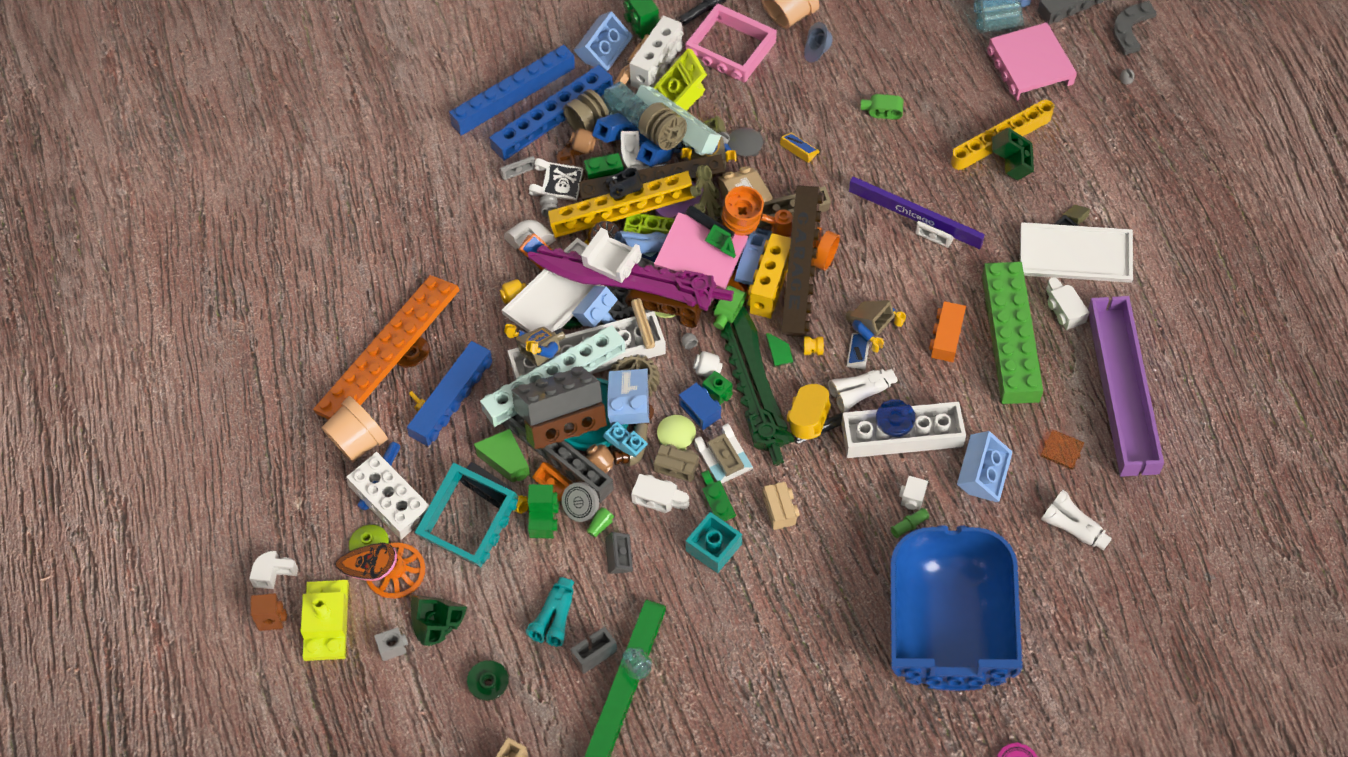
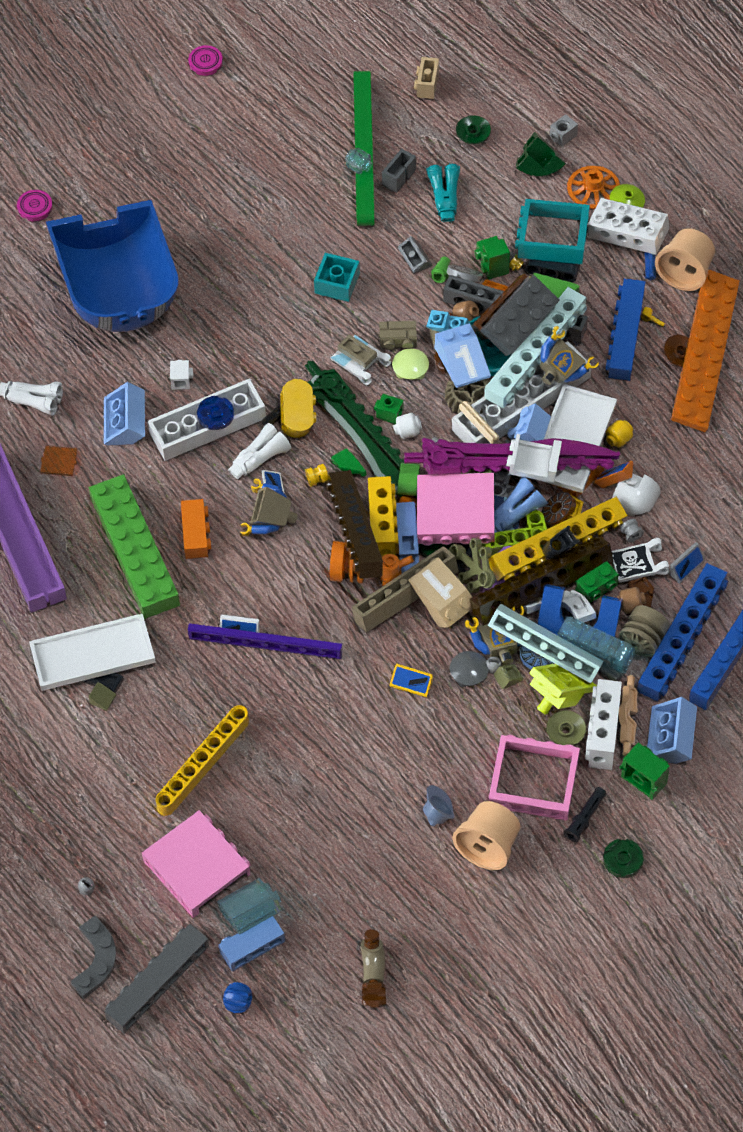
camera: 160 degrees right, 0 degrees up
(268, 566) = (693, 150): white brick -> none
(268, 612) = (672, 113): dark orange brick -> none
(325, 620) = (628, 134): neon yellow brick -> none
(368, 562) = (614, 173): shield -> none
(658, 494) = (401, 304): white hinge -> none
(662, 126) = (550, 610): dark tan wheel -> none
(700, 406) = (399, 386): blue piece -> none
(705, 220) = (457, 527): black axle -> none
(717, 498) = (350, 320): green plate -> none
(721, 239) = (437, 512): green slope -> none
(742, 210) = (429, 537): orange wheel -> none
(780, 506) = (294, 328): tan brick -> none
(884, 106) = (339, 753): bright green piece -> none
(909, 523) = (176, 351): bright green pin -> none
(1016, 152) = (182, 730): dark green brick -> none
(1066, 304) = (88, 591): white hinge -> none

